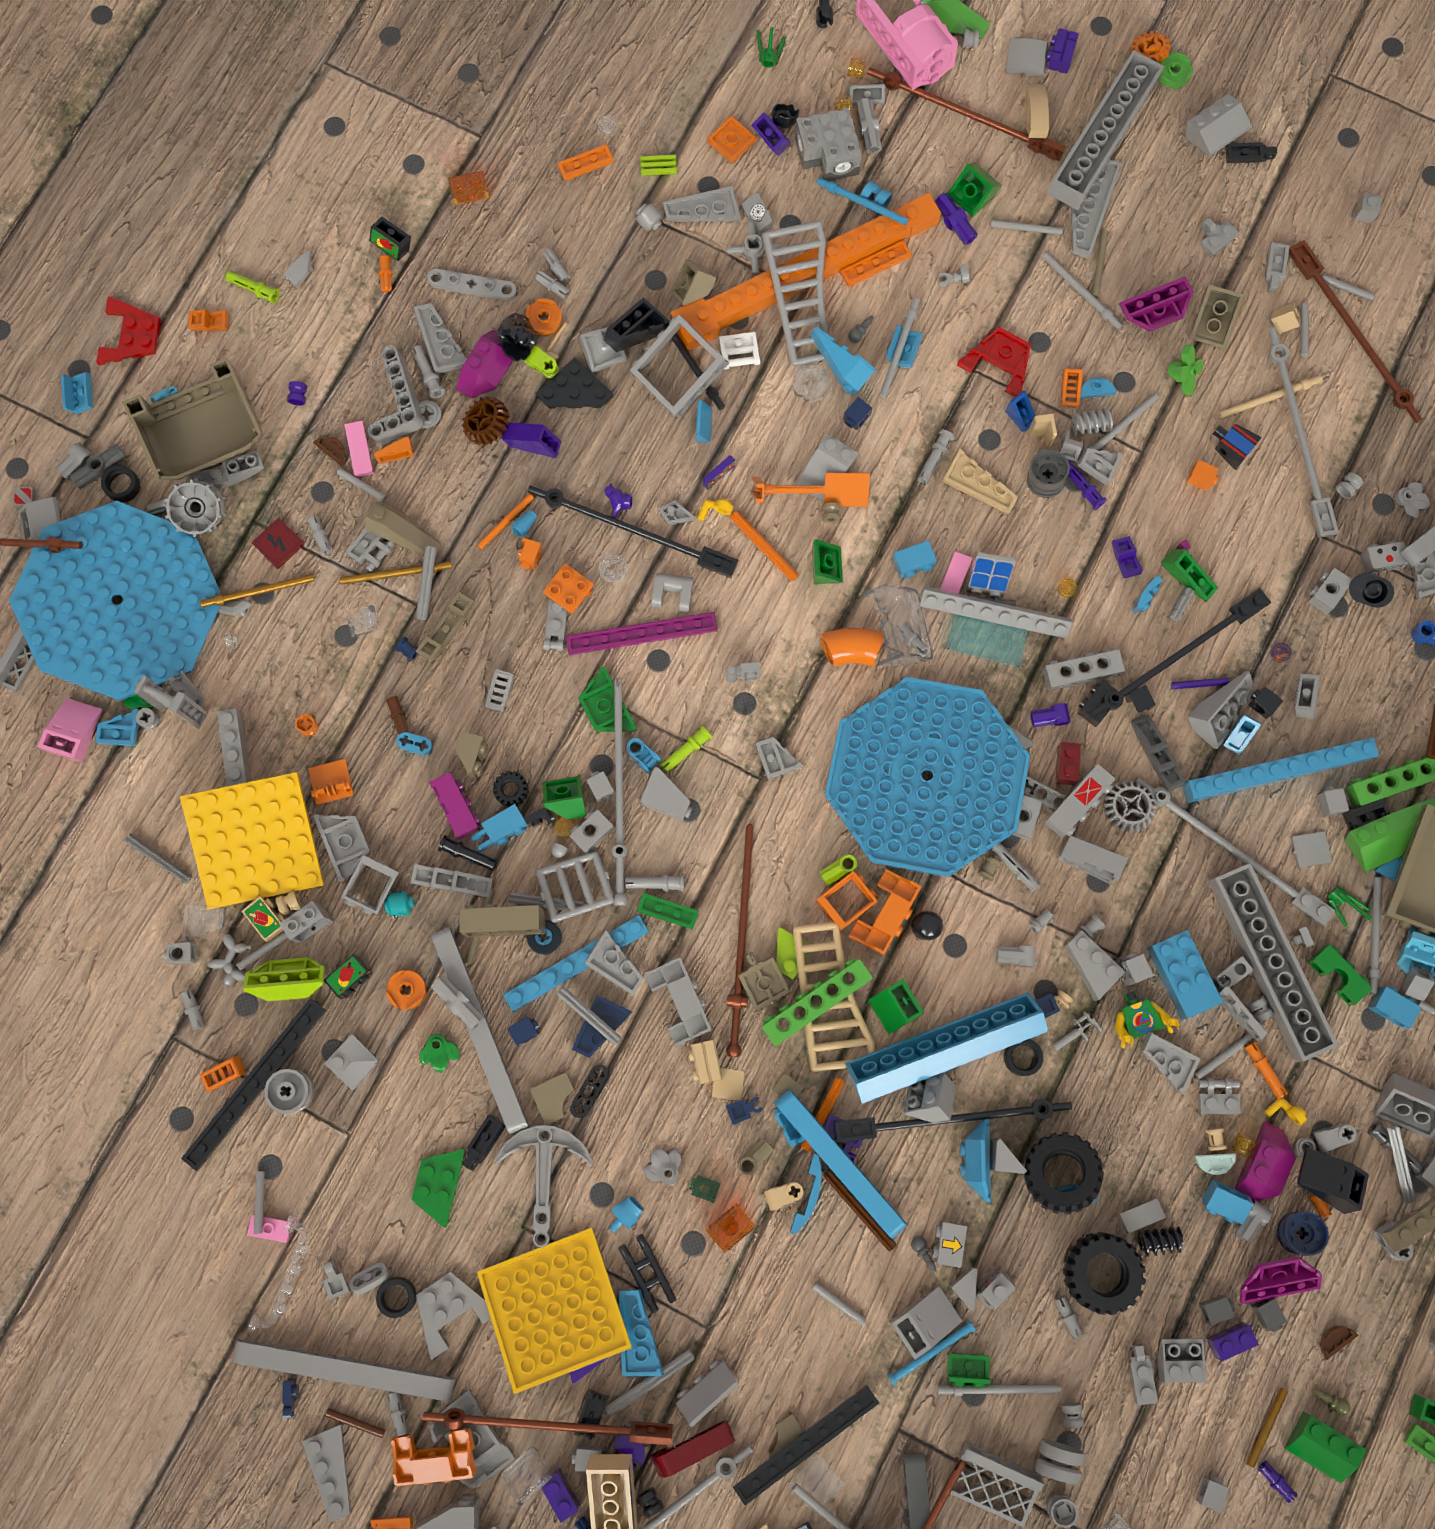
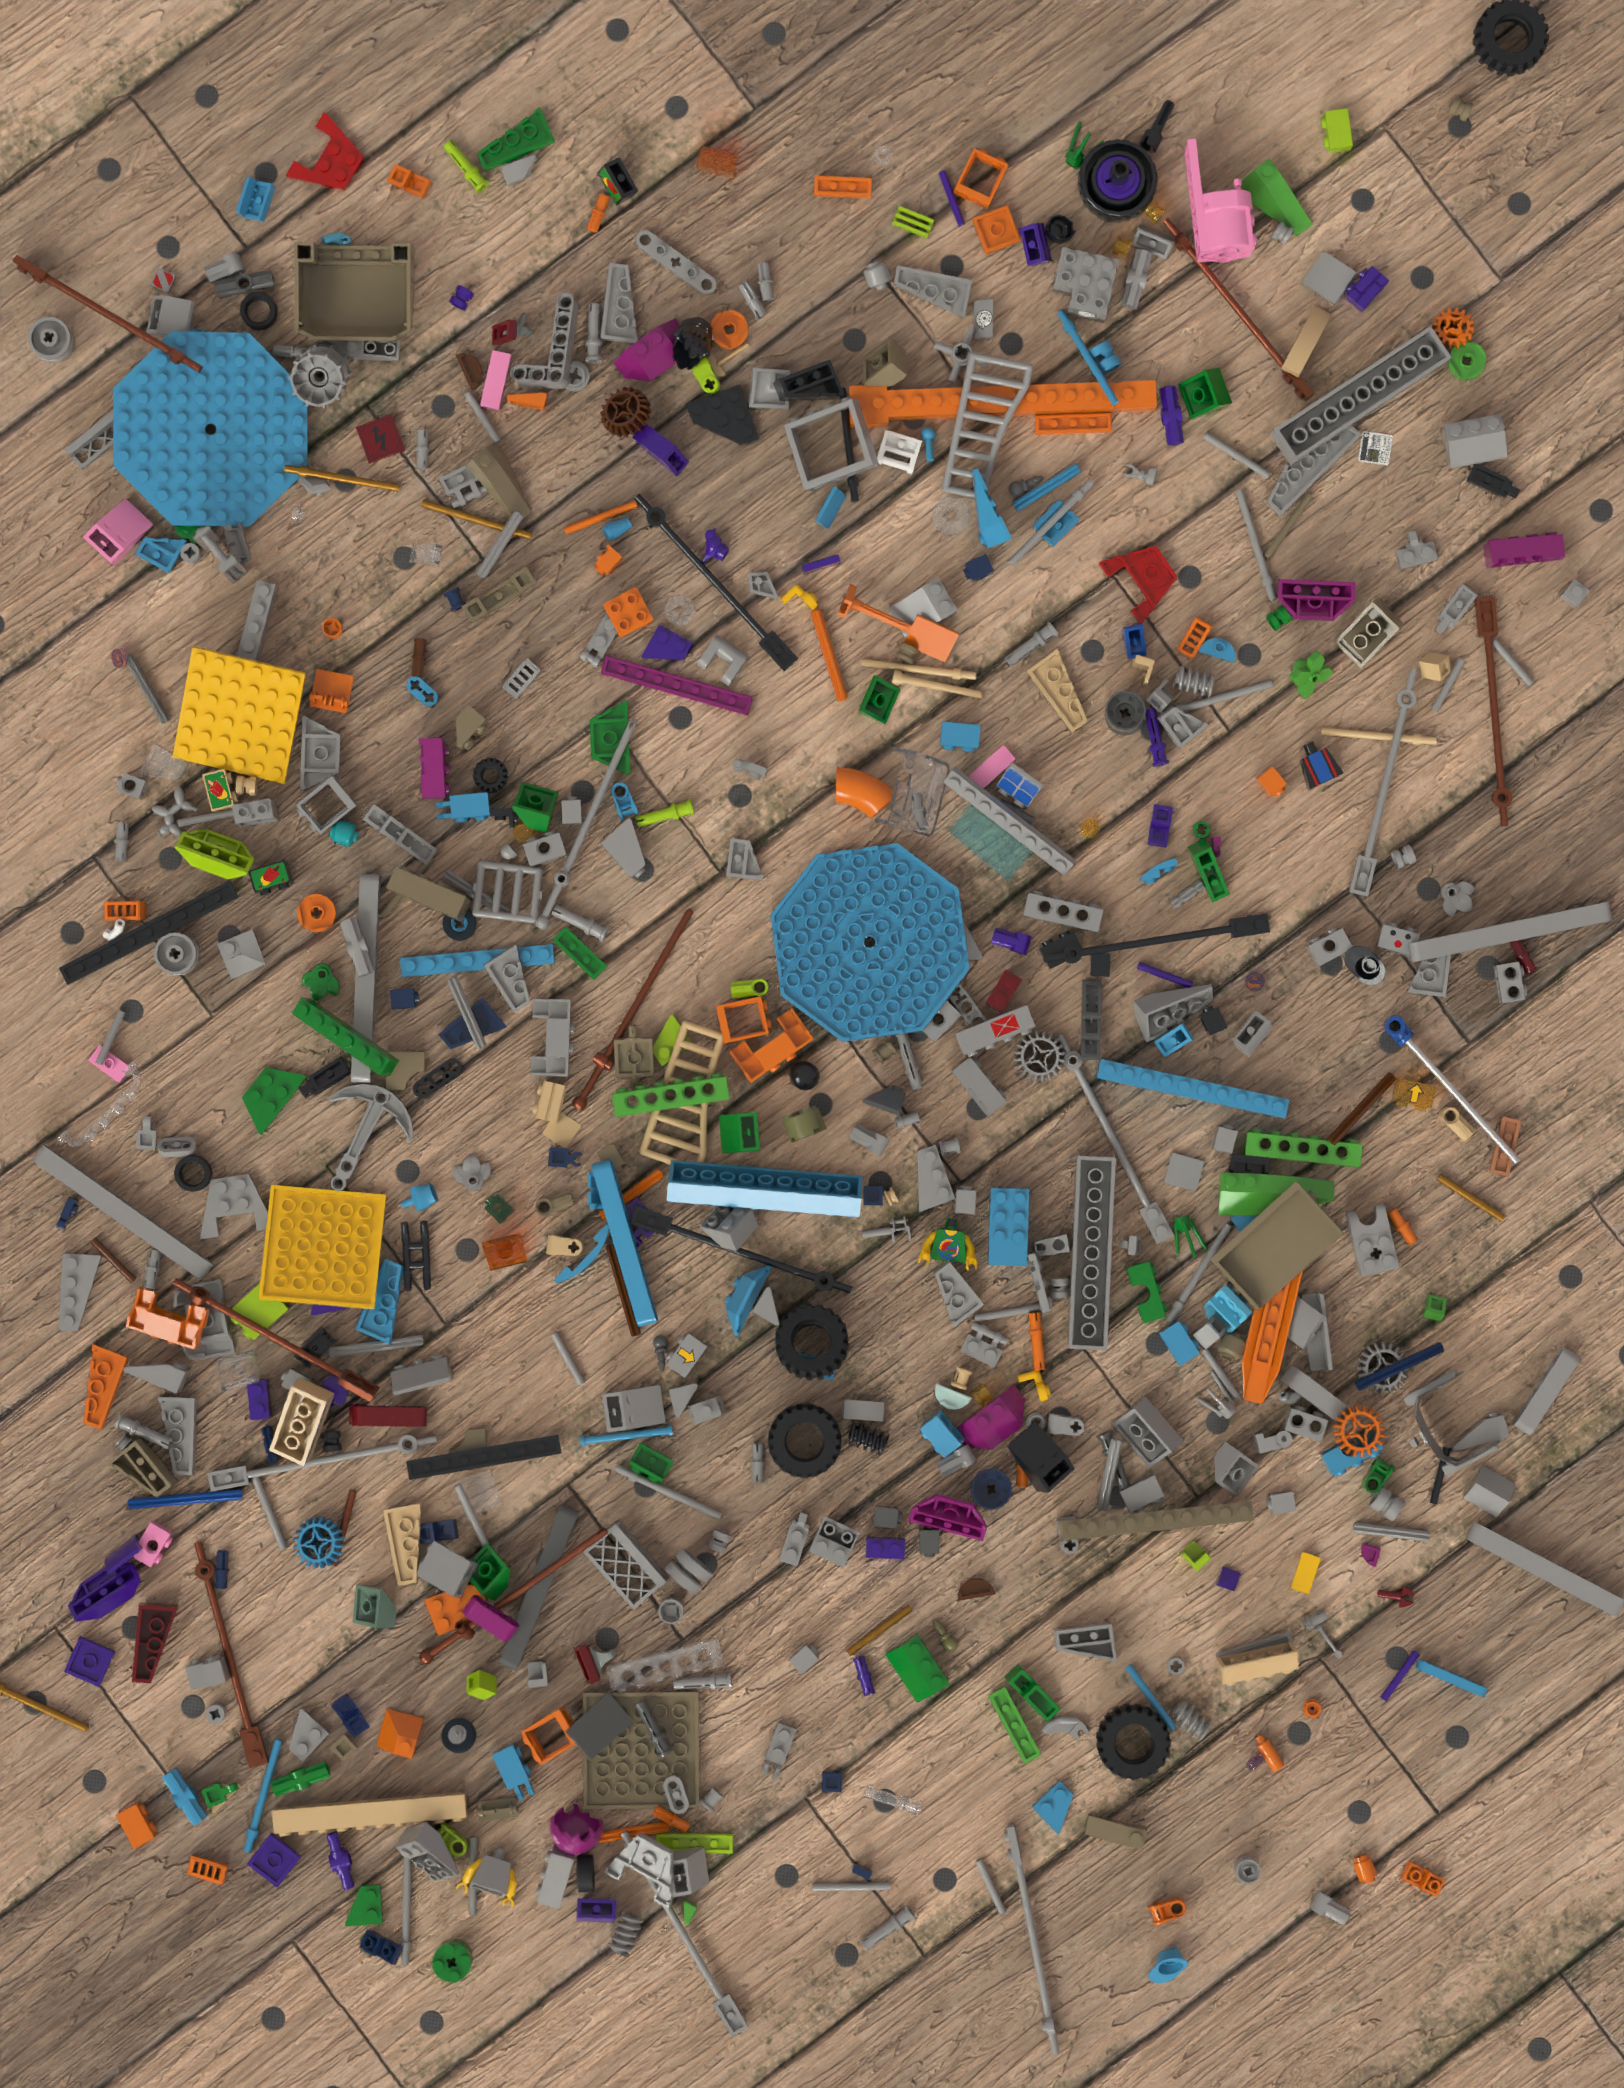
camera: 25 degrees right, 10 degrees up
(119, 842) = (119, 658): none -> tile
(223, 1097) = (118, 929): none -> white arm
(292, 244) = (517, 142): none -> green wing
(350, 400) = (509, 330): none -> dark red piece
(459, 850) = (418, 809): black pin -> none
(484, 1093) = (345, 1036): none -> green brick
(520, 1405) = (259, 1311): none -> lime panel
(616, 603) = (666, 645): none -> dark purple wing
(682, 133) = (951, 197): none -> dark purple bar
(698, 121) = (972, 195): none -> orange window
(758, 327) = (928, 434): none -> dark azure bar
(813, 55) = (1117, 180): none -> black wheel
(836, 536) = (900, 678): none -> tan piece
(880, 323) = (1046, 487): none -> dark azure axle
(882, 510) = (955, 673): none -> tan bar
(952, 969) = (804, 1124): none -> olive brick
(1015, 910) = (887, 1099): none -> dark grey slope
(1024, 1072) = (830, 1244): black tyre -> none
(1135, 336) = (1278, 618): none -> green wheel
(1137, 171) = (1375, 448): none -> sticker
(1159, 548) = (1195, 827): none -> green bush
(1306, 193) = (1524, 550): none -> magenta wedge

